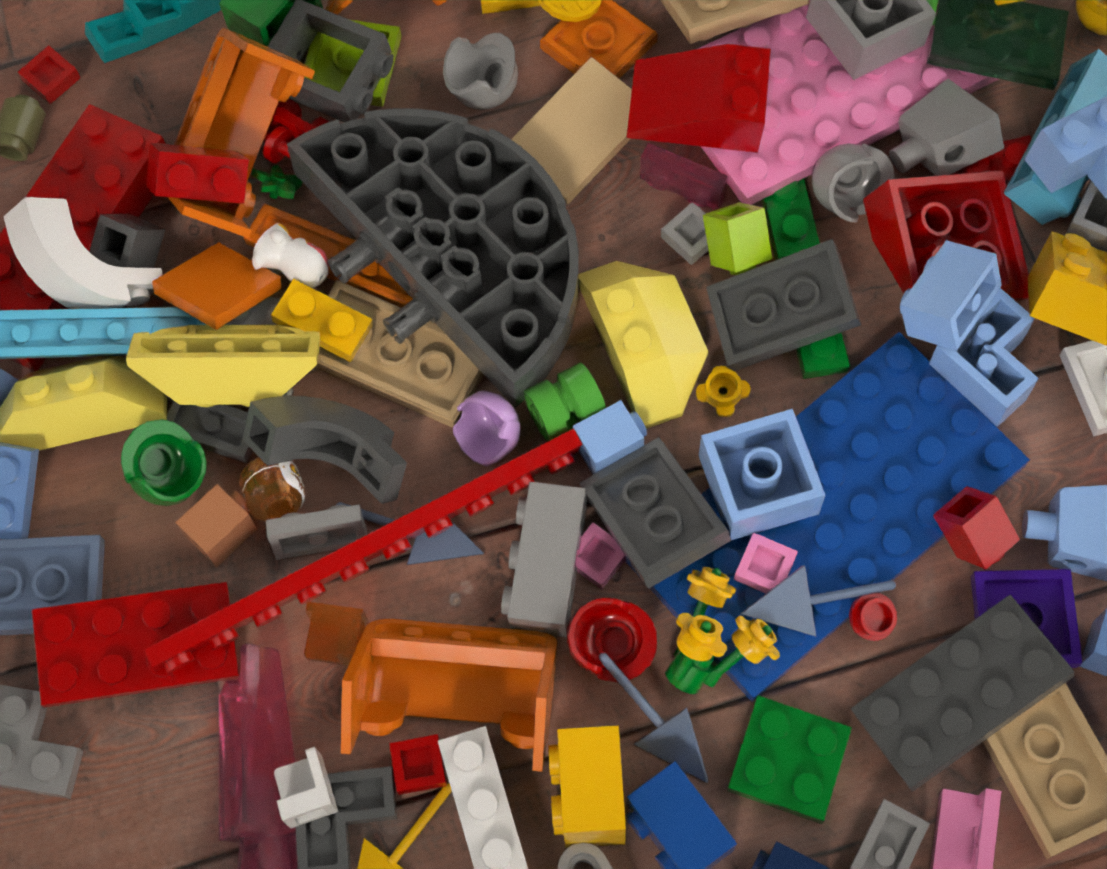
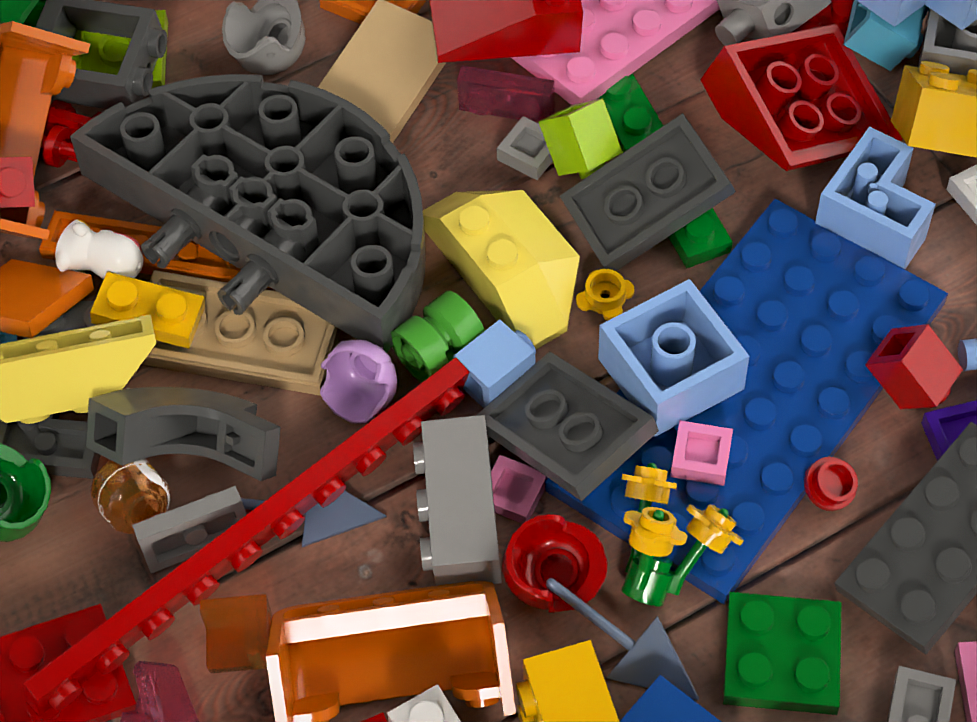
camera: 15 degrees left, 10 degrees down
(217, 524) = (75, 547): nougat brick -> none
(277, 182) = (65, 186): green plant -> none
(791, 603) = (741, 485): sand blue piece -> none
(847, 176) = (679, 58): light grey helmet -> none
(950, 295) = (821, 140): light blue brick -> none

